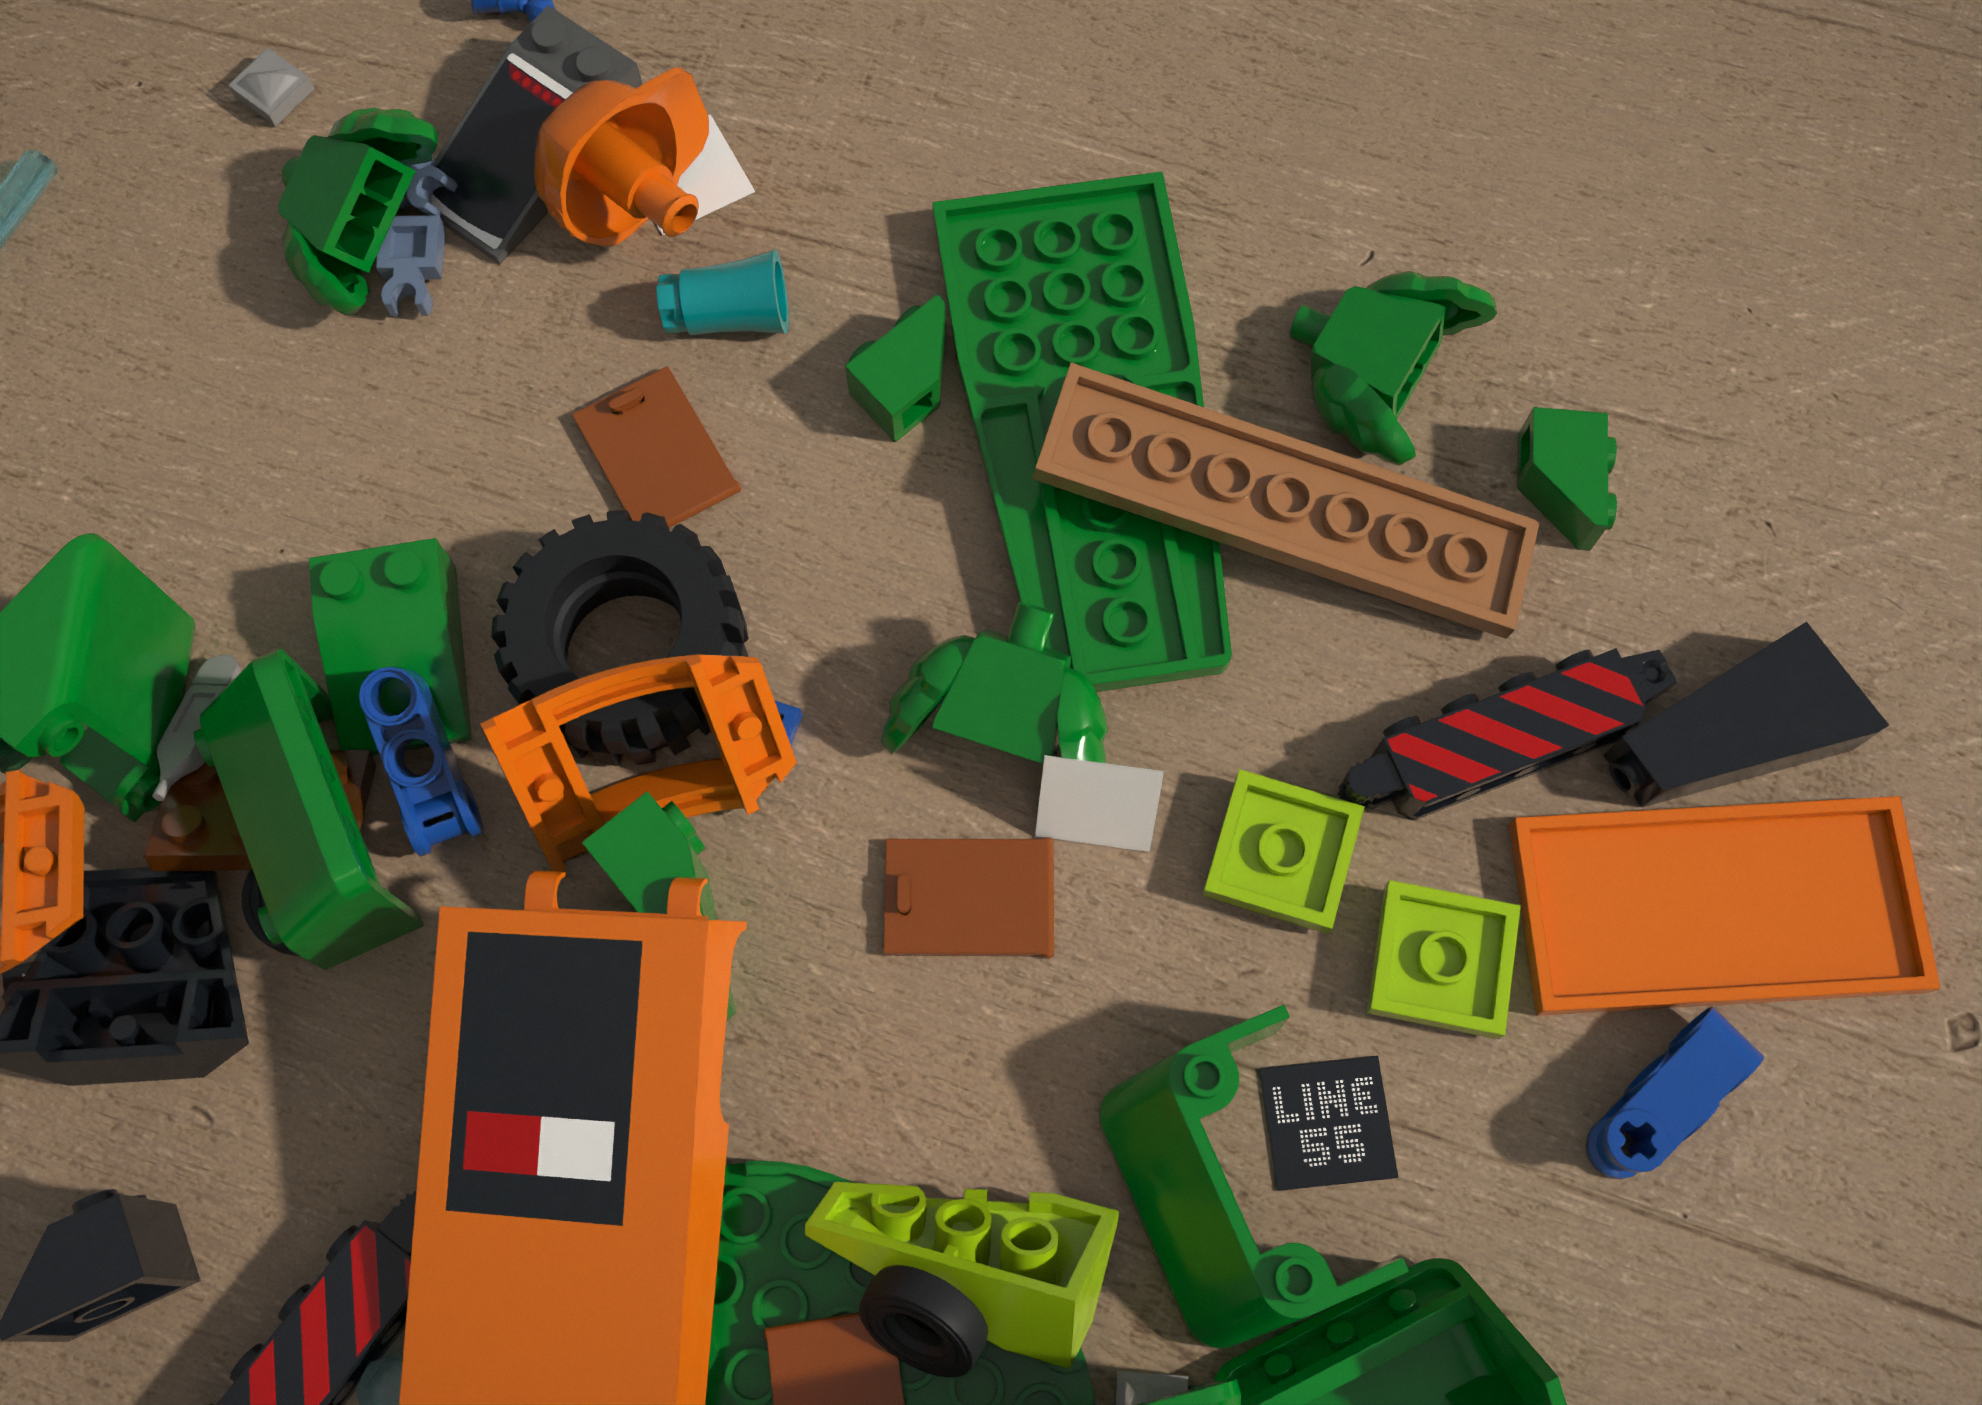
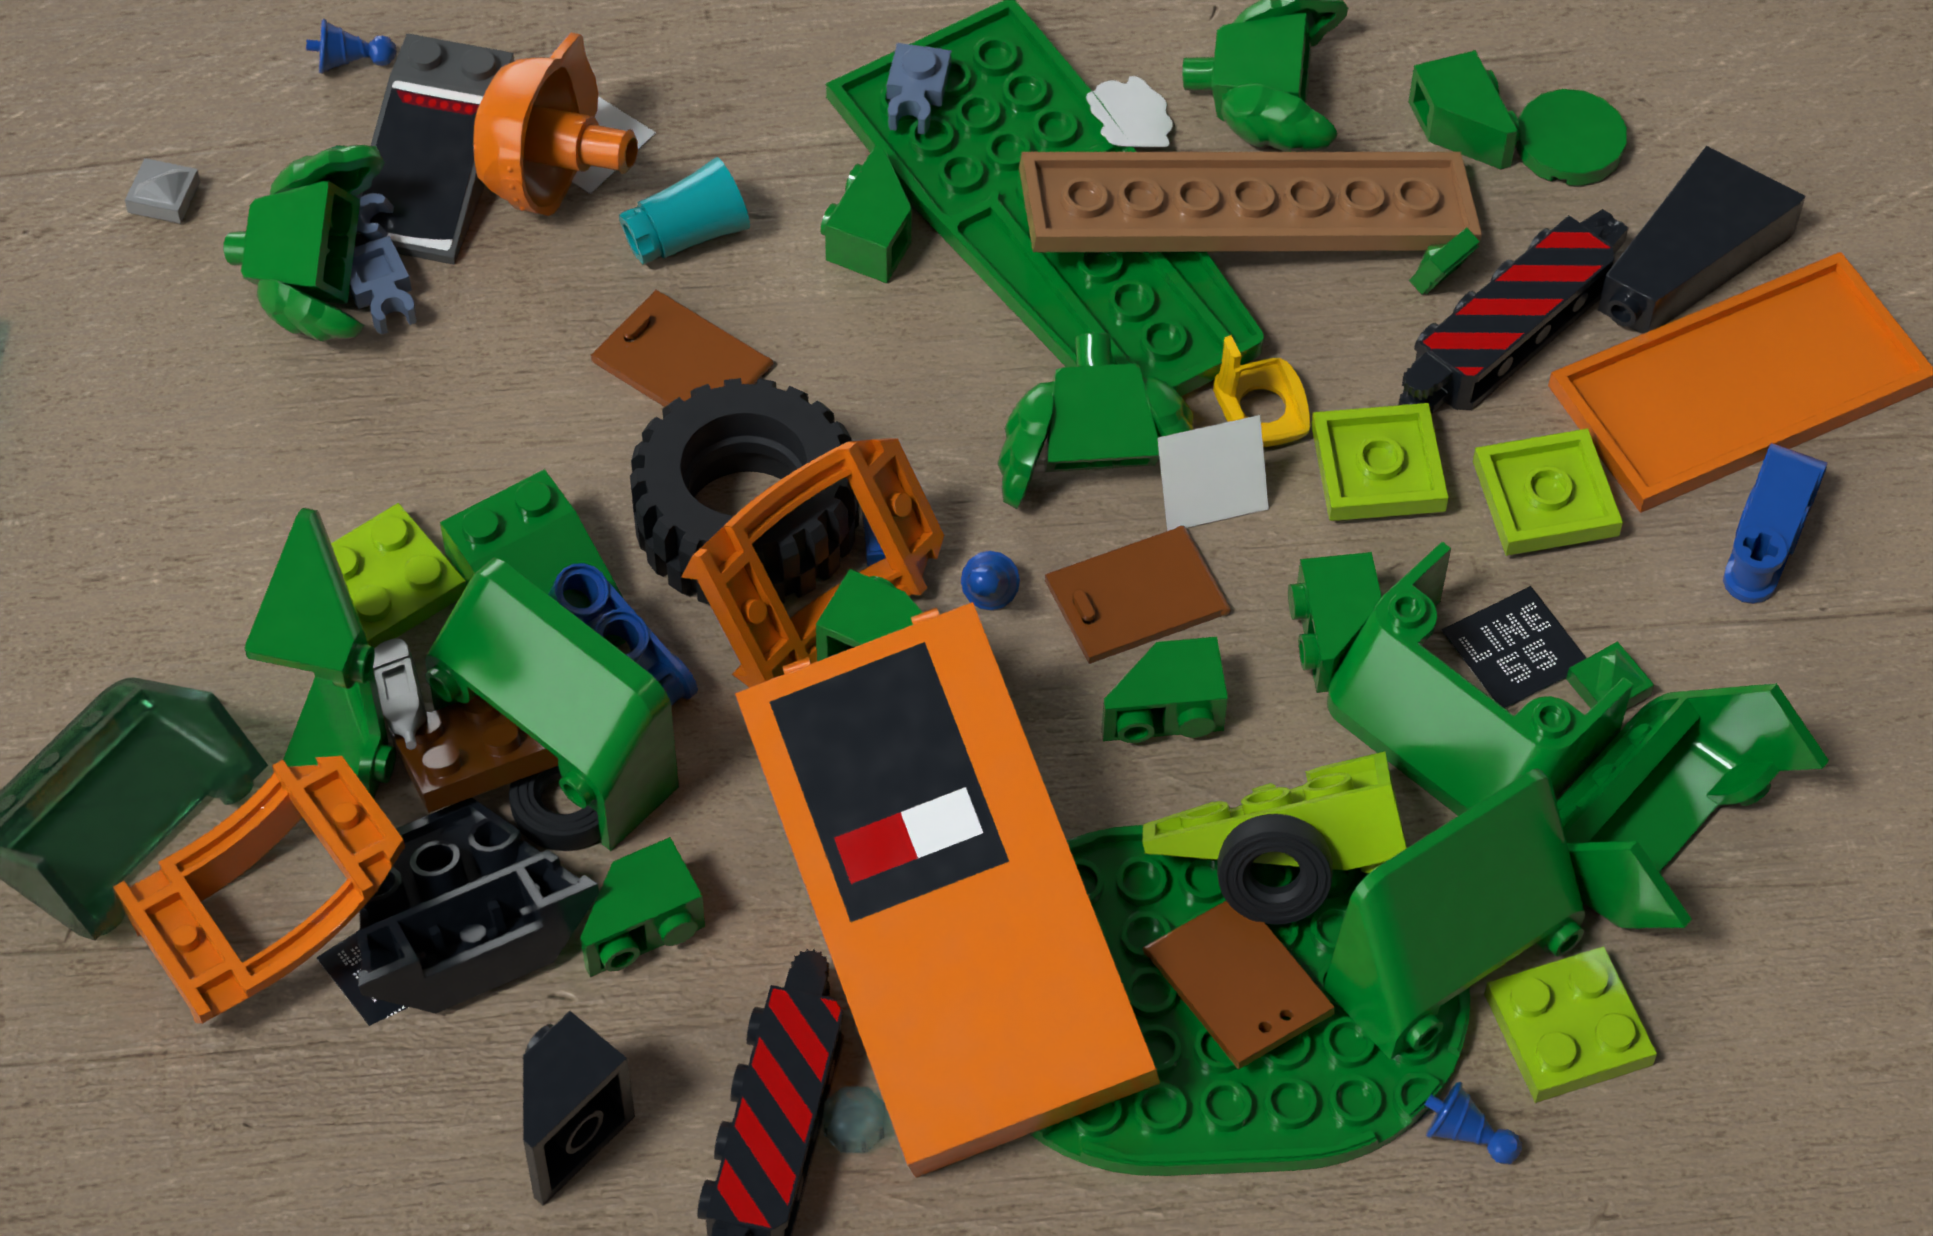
camera: 25 degrees left, 15 degrees down
(254, 581) = (395, 574): none -> lime plate
(303, 1055) = (640, 907): none -> green slope
(822, 827) = (990, 580): none -> blue piece
(937, 1034) = (1169, 693): none -> green slope
(1016, 234) = (916, 82): none -> sand blue plate
(1156, 1014) = (1333, 603): none -> green slope
(1186, 694) = (1269, 374): none -> yellow piece
(1227, 347) = (1136, 111): none -> white sticker
(1405, 1212) = (1603, 670): none -> green tile
(1461, 642) = (1443, 260): none -> green tile
(1669, 543) = (1571, 137): none -> green tile

